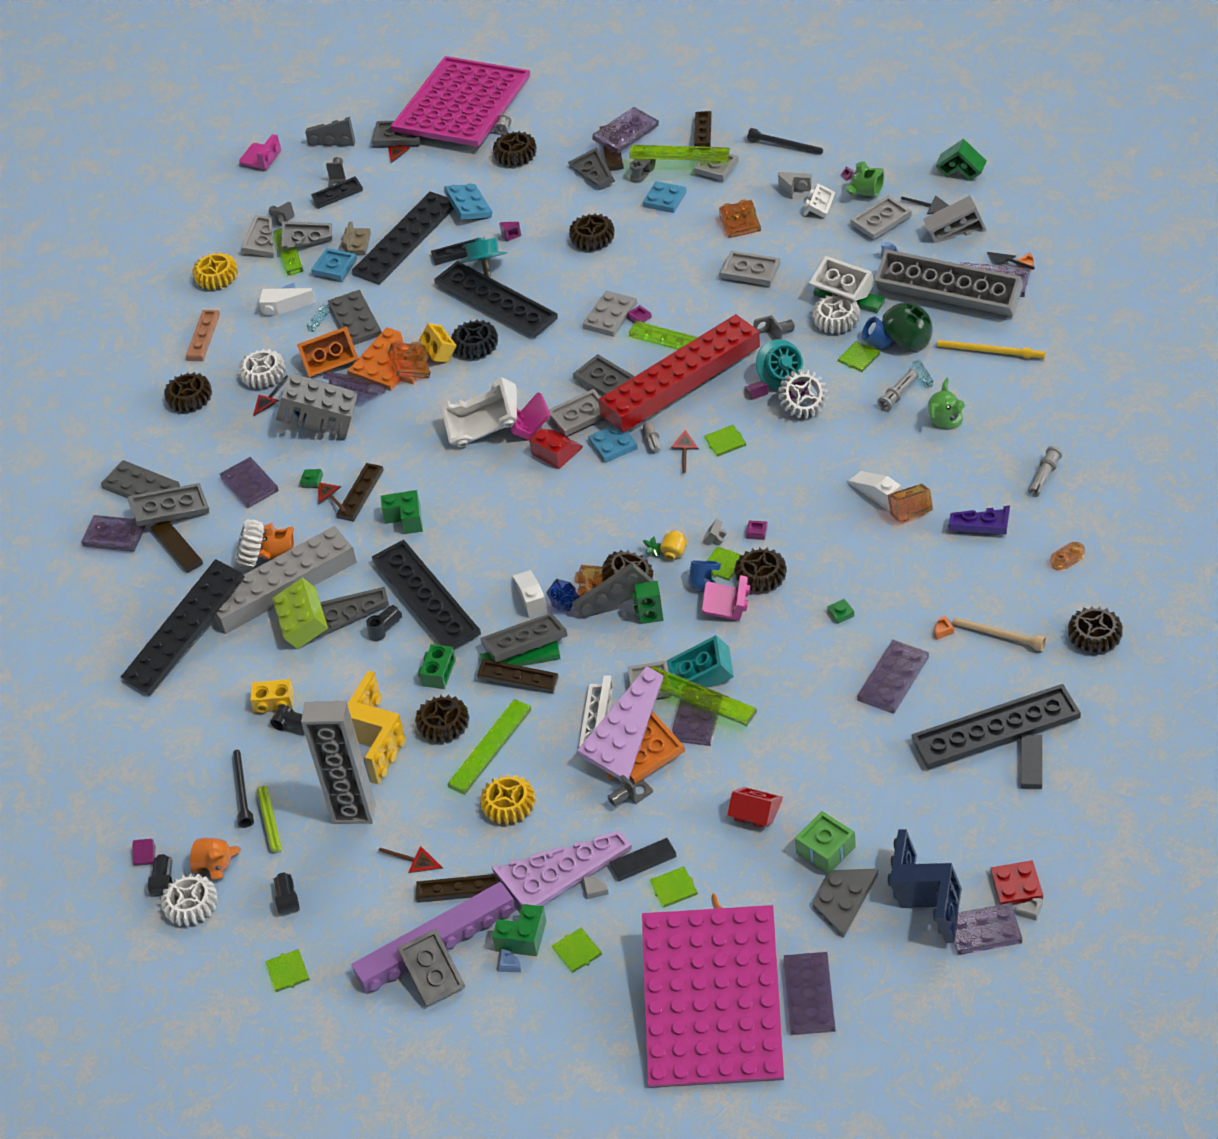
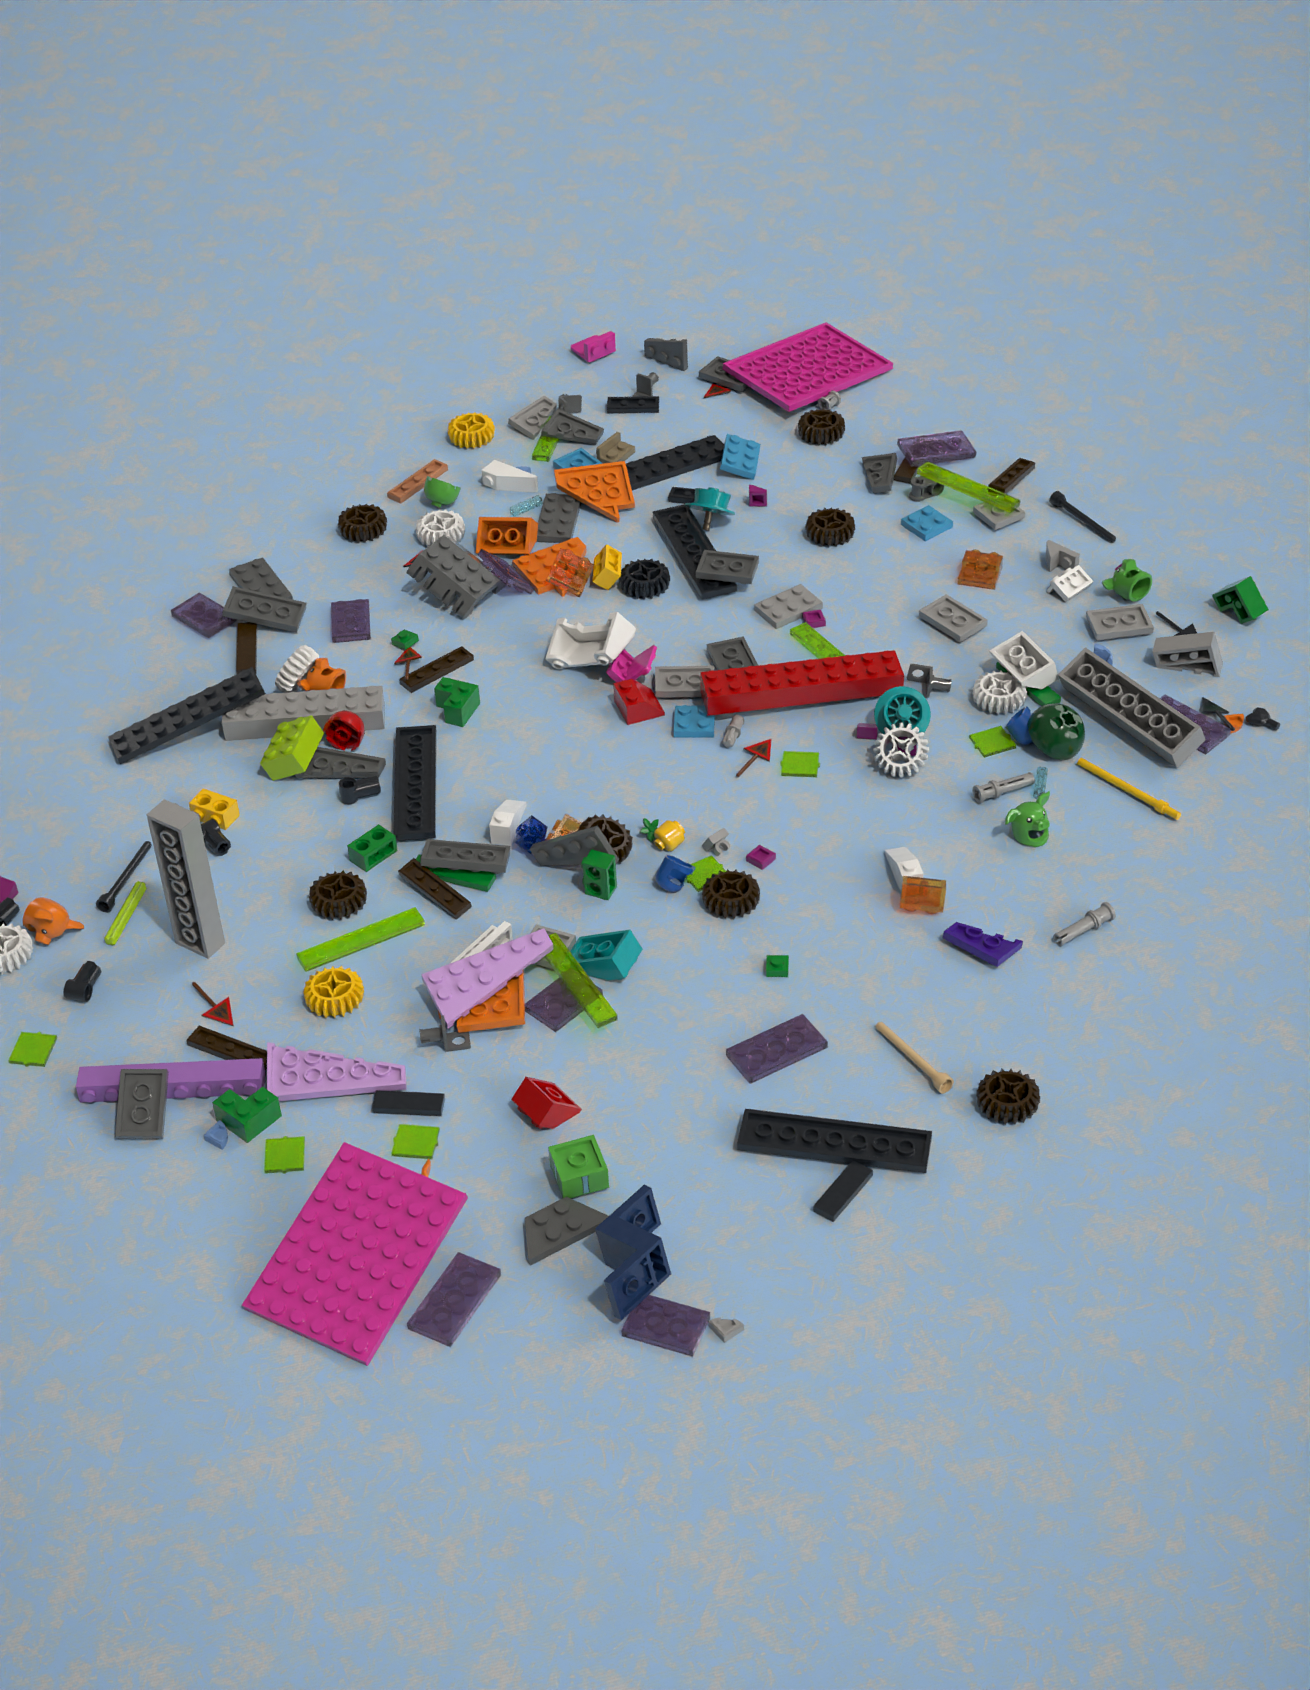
camera: 25 degrees right, 5 degrees down
(237, 336) = (440, 492): none -> bright green cylinder
(333, 578) = (344, 730): none -> red cylinder
(373, 275) = (599, 486): none -> orange wing
(375, 727) = (269, 873): yellow bracket -> none
(539, 300) = (727, 567): none -> dark grey plate
(595, 887) = (345, 1106): light grey tile -> none
(726, 600) = (674, 905): bracket -> none
(943, 628) = (862, 1027): orange tile -> none
(1016, 882) = (732, 1297): red plate -> none
(1043, 250) = (1261, 717): none -> black rock
(1070, 555) = (1042, 1015): clear orange plate -> none

